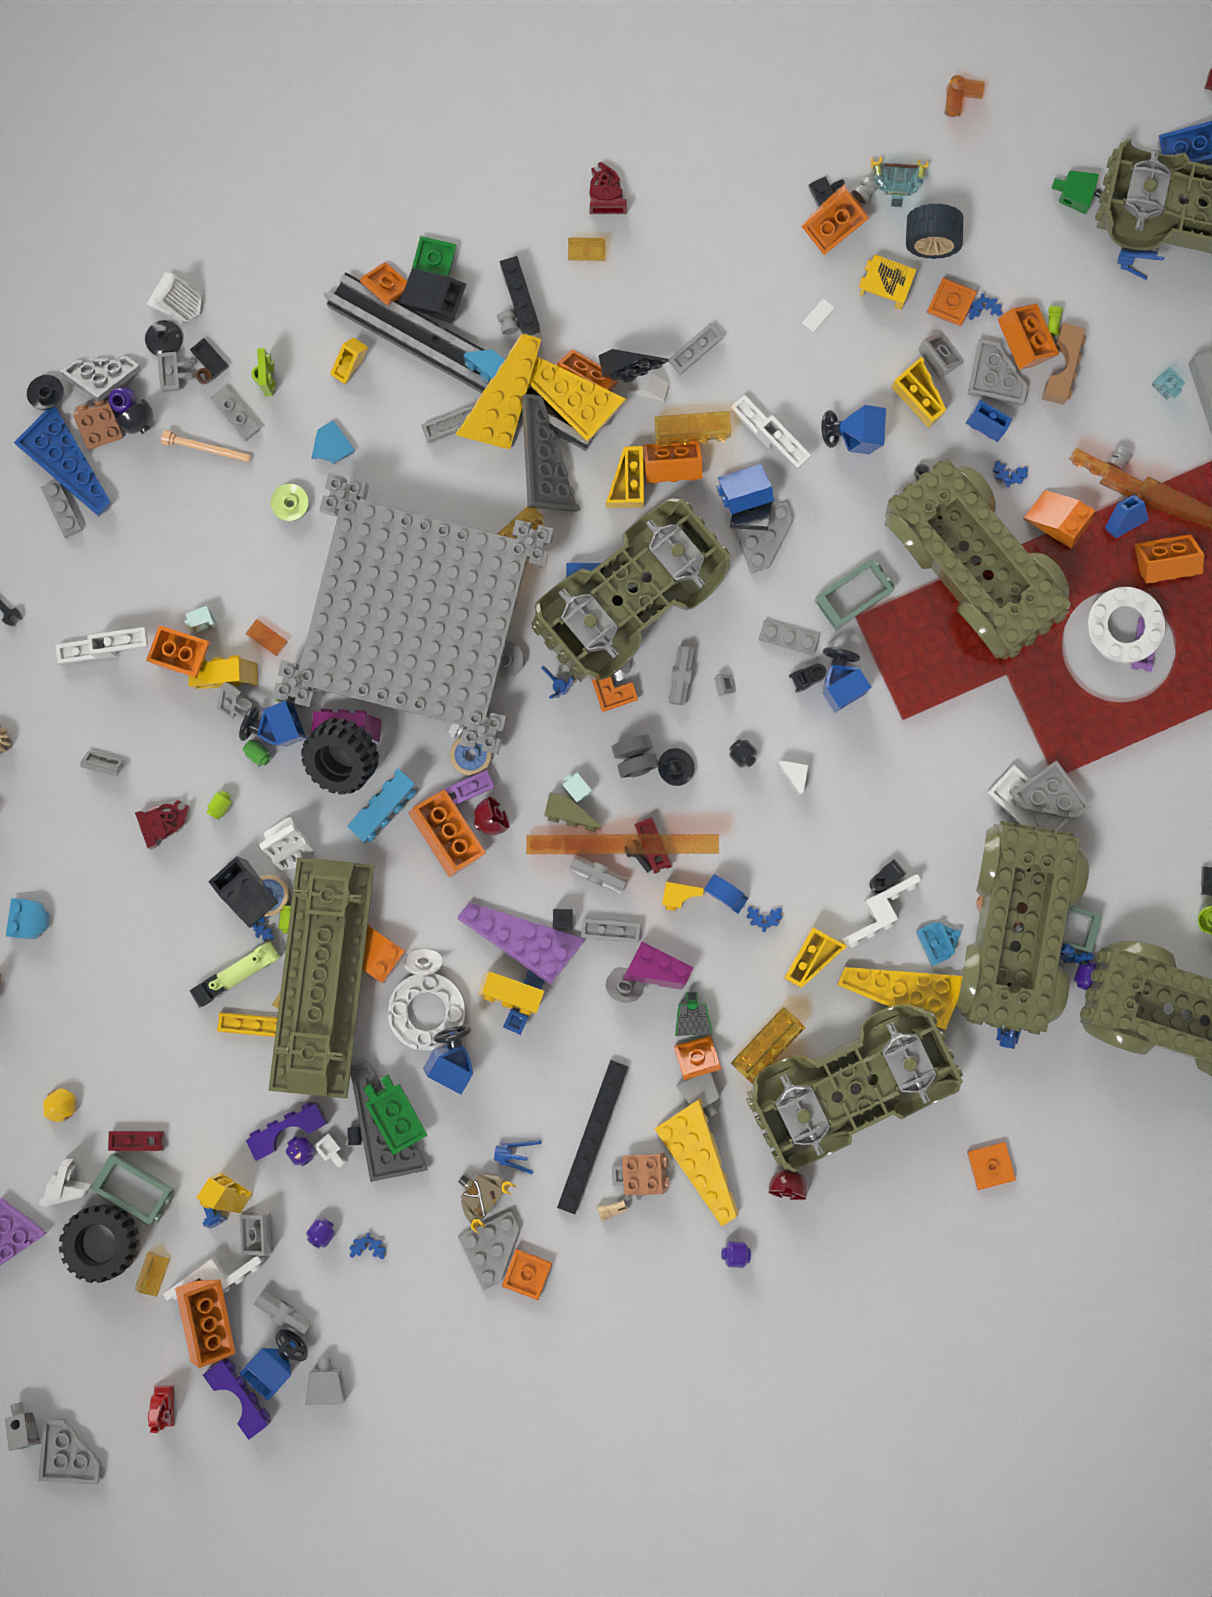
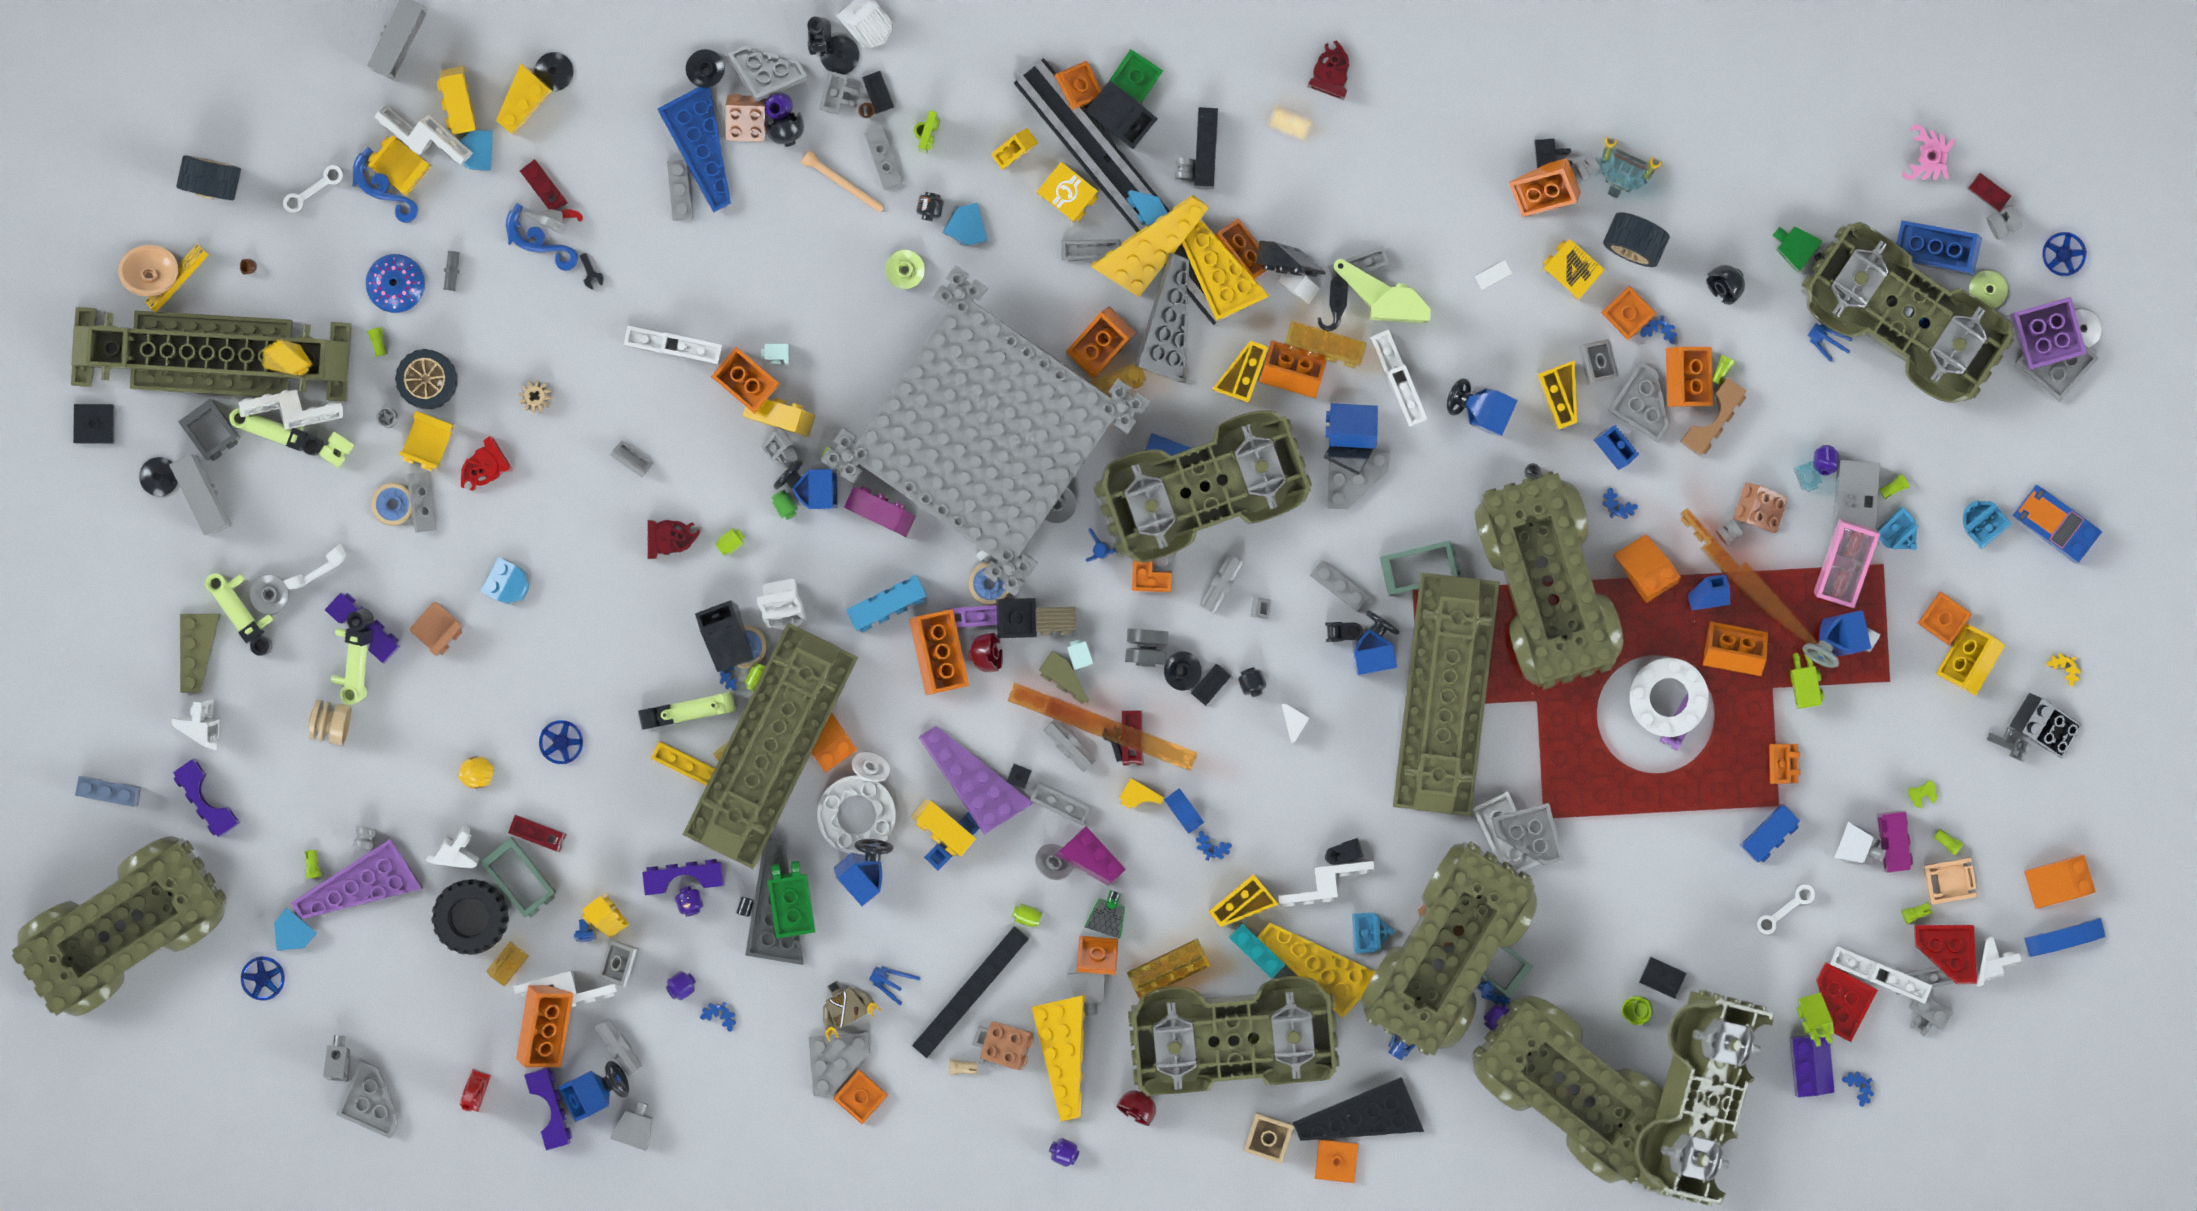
camera: 15 degrees right, 5 degrees up
(128, 1047) = (560, 742): none -> clear blue wheel
(139, 328) = (819, 37): none -> black piece
(266, 637) = (834, 394): clear orange plate -> none
(291, 438) = (929, 206): none -> black head
(329, 1148) = (716, 910): white plate -> none
(349, 739) = (849, 553): black tyre -> none
(411, 380) = (1068, 192): none -> yellow panel
(490, 501) = (1101, 342): none -> orange slope
(506, 776) = (1016, 618): none -> black plate
(543, 764) = (1055, 619): none -> dark tan brick
(618, 1045) = (1026, 915): none -> lime brick
(706, 770) = (1210, 684): none -> black tile
(734, 370) = (1385, 302): none -> yellowish green slope
(842, 997) = (1256, 950): none -> teal brick
(921, 1168) = (1268, 1137): none -> tan brick
(924, 697) = (1445, 694): none -> olive piece
(954, 97) = (1729, 102): clear orange piece -> none
(1005, 1109) = (1371, 1113): none -> black wing
(1028, 243) = (1726, 283): none -> black cylinder
(1137, 426) = (1760, 507): none -> nougat bracket
(1163, 68) = (1932, 156): none -> bright pink animal
(1180, 362) = (1826, 460): none -> dark purple head

